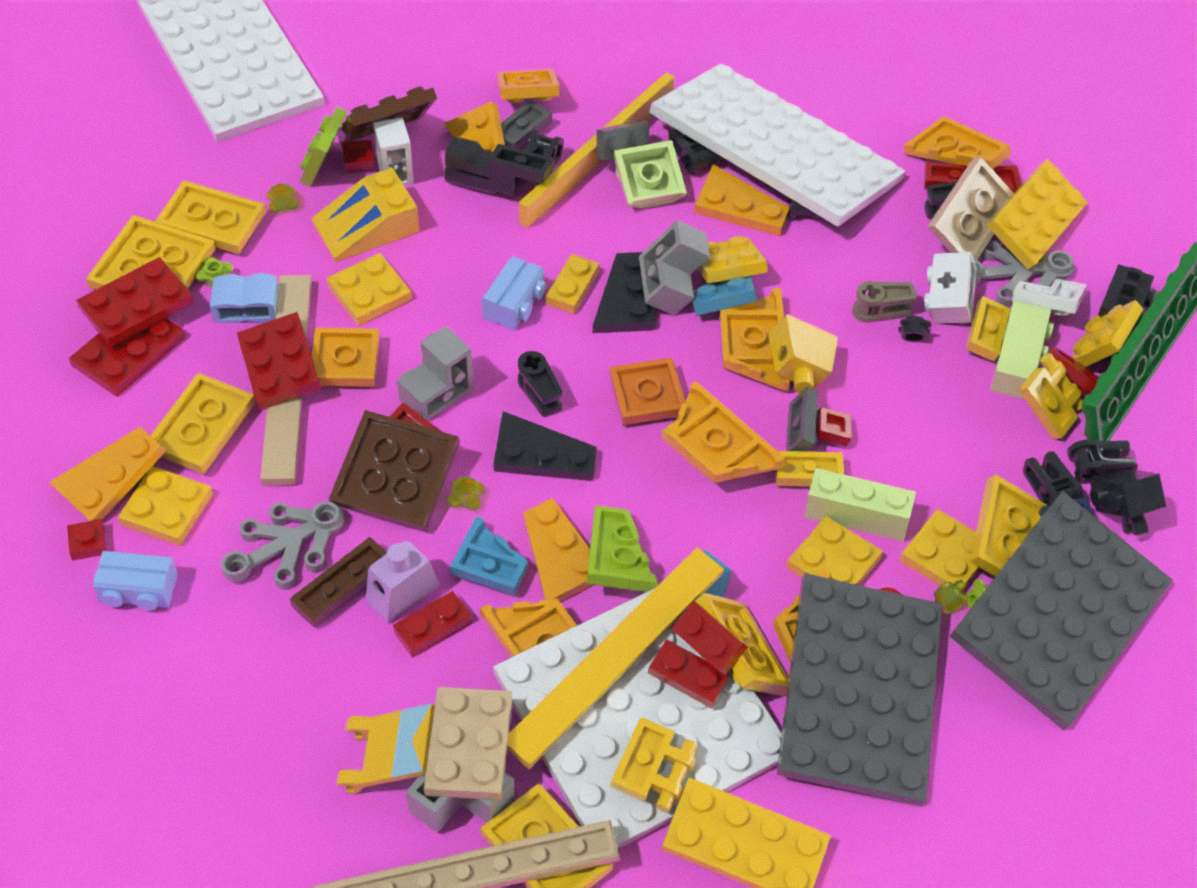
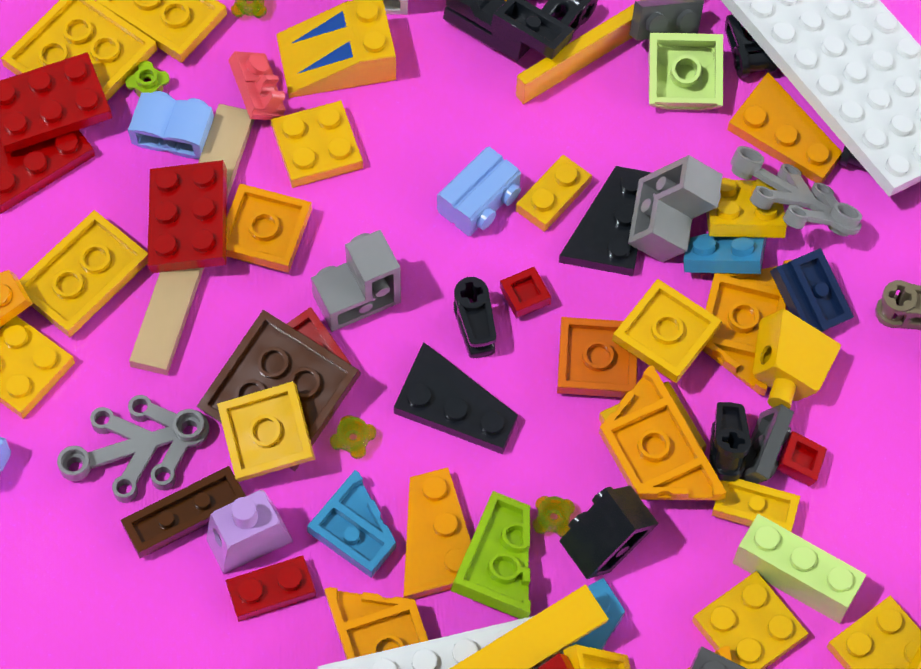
camera: 15 degrees right, 10 degrees up
(308, 255) = (257, 85): none -> coral plate
(394, 500) = (266, 431): none -> yellow plate
(573, 357) = (525, 292): none -> red plate
(649, 506) = (548, 505): none -> clear neon green plate
(697, 355) = (666, 330): none -> yellow plate
(699, 509) = (607, 531): none -> black brick
(774, 245) = (793, 191): none -> light grey plant
(774, 423) = (729, 441): none -> black piece
(801, 301) = (812, 291): none -> dark blue plate

